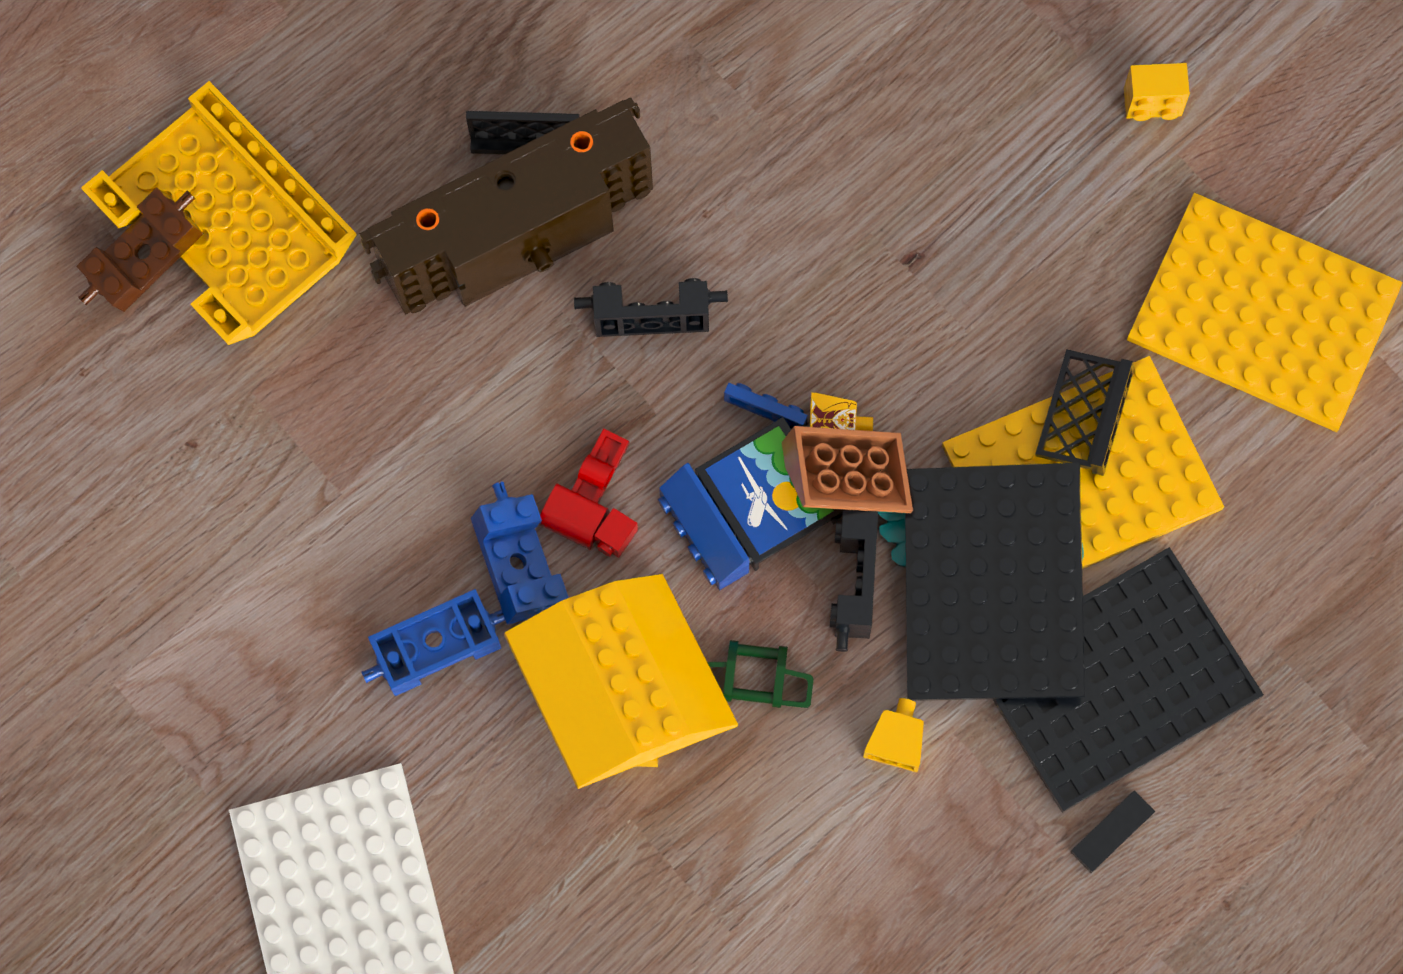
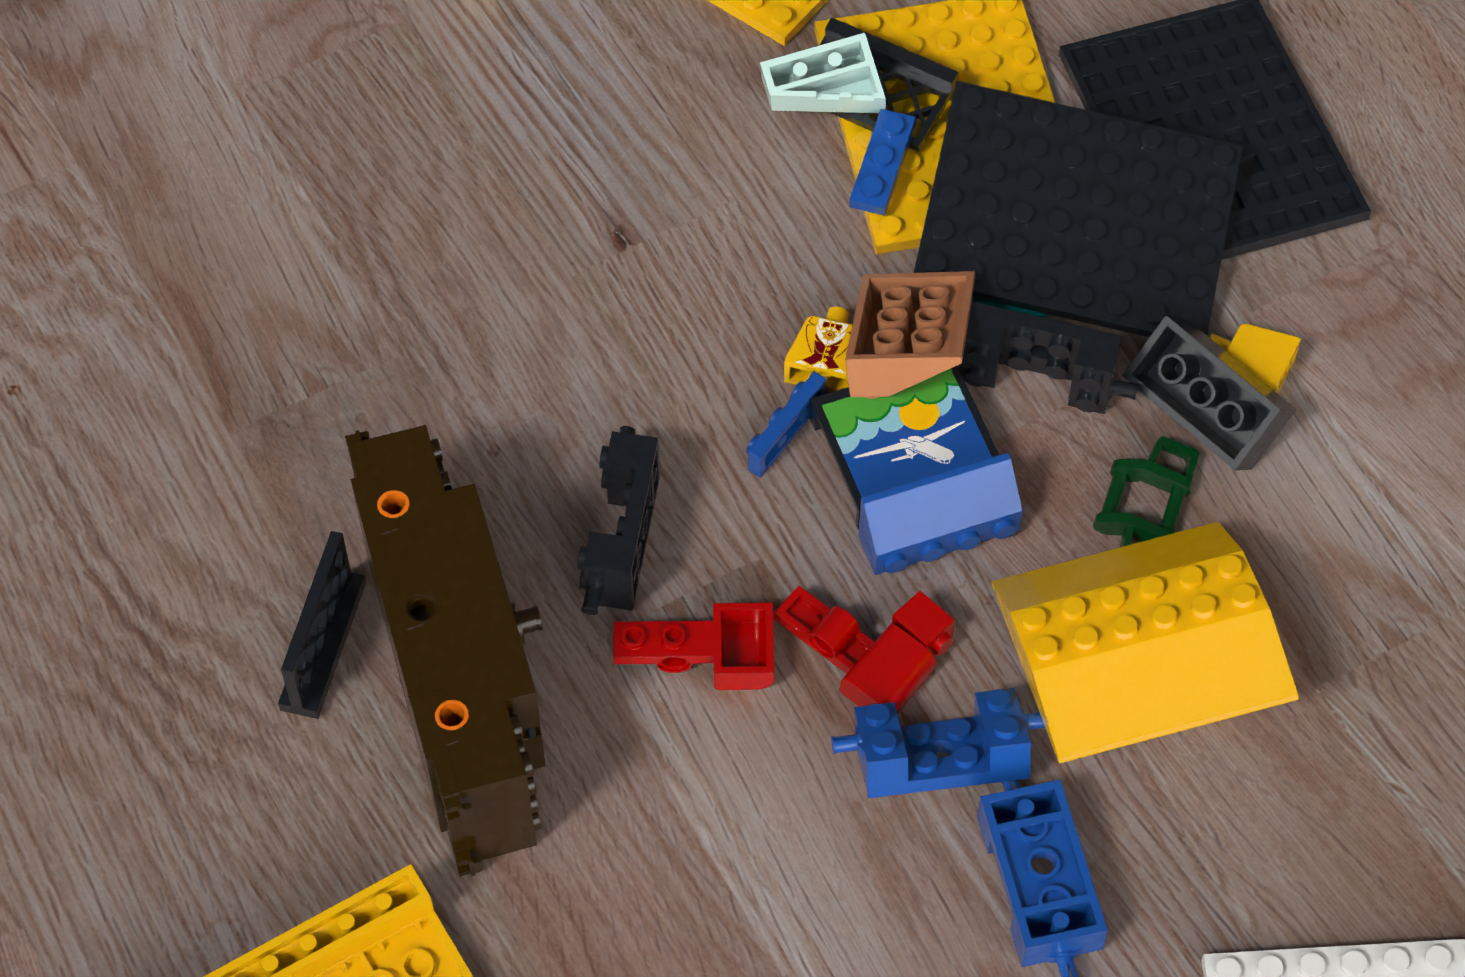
camera: 80 degrees left, 15 degrees down
(574, 407) = (735, 642): none -> red plate
(851, 702) = (1209, 392): none -> black brick
(1012, 429) = (882, 162): none -> blue plate
(1068, 370) = (825, 79): none -> light aqua wedge
(1112, 831) = (1397, 174): black tile -> none

